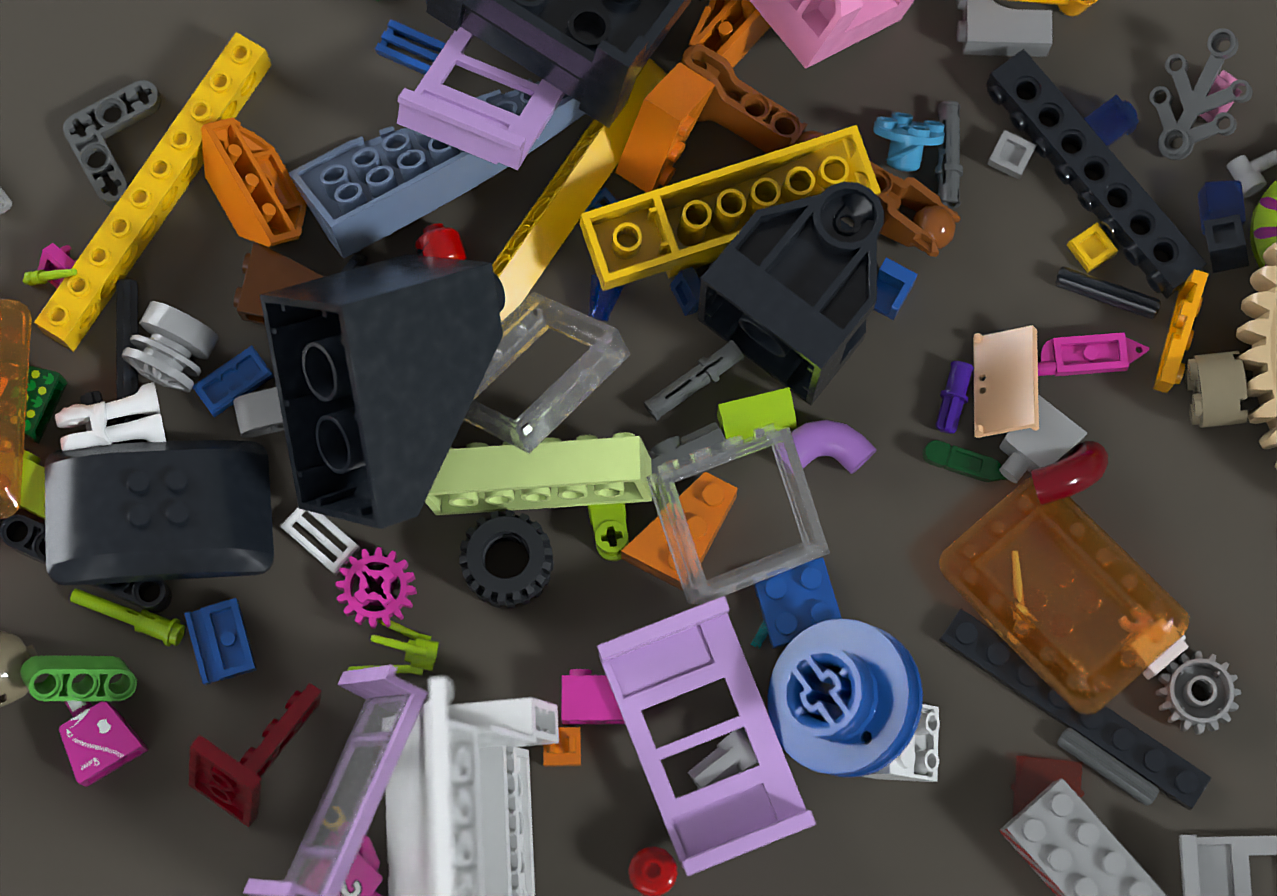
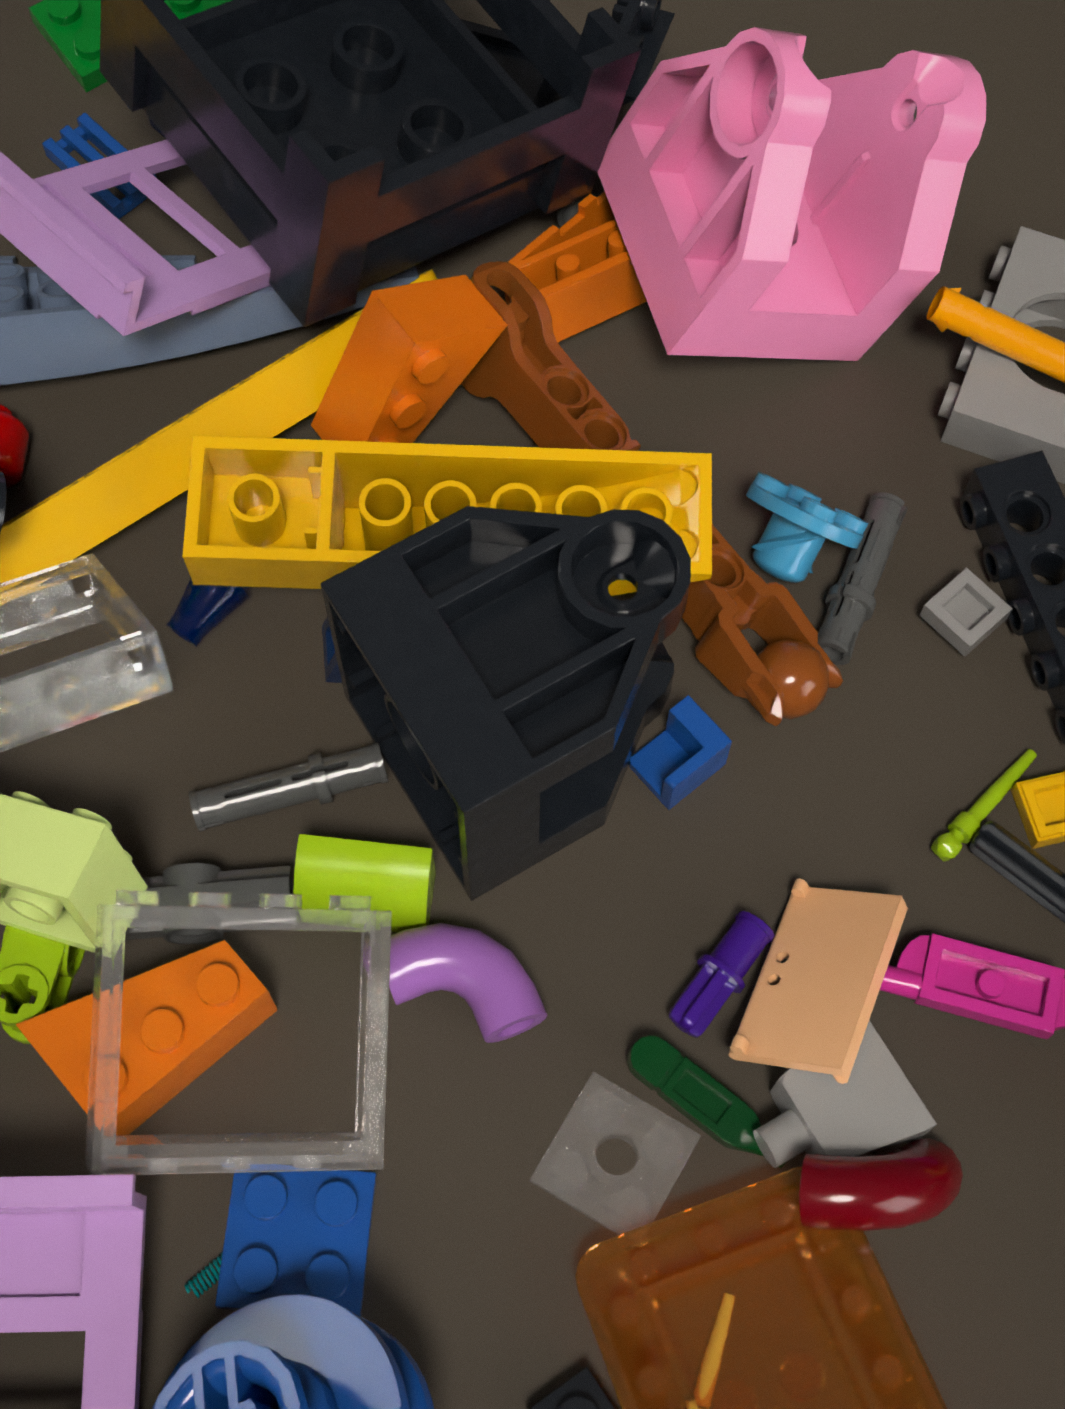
camera: 20 degrees right, 10 degrees down
(918, 519) = (615, 1201): none -> clear piece
(1050, 272) = (967, 823): none -> lime piece

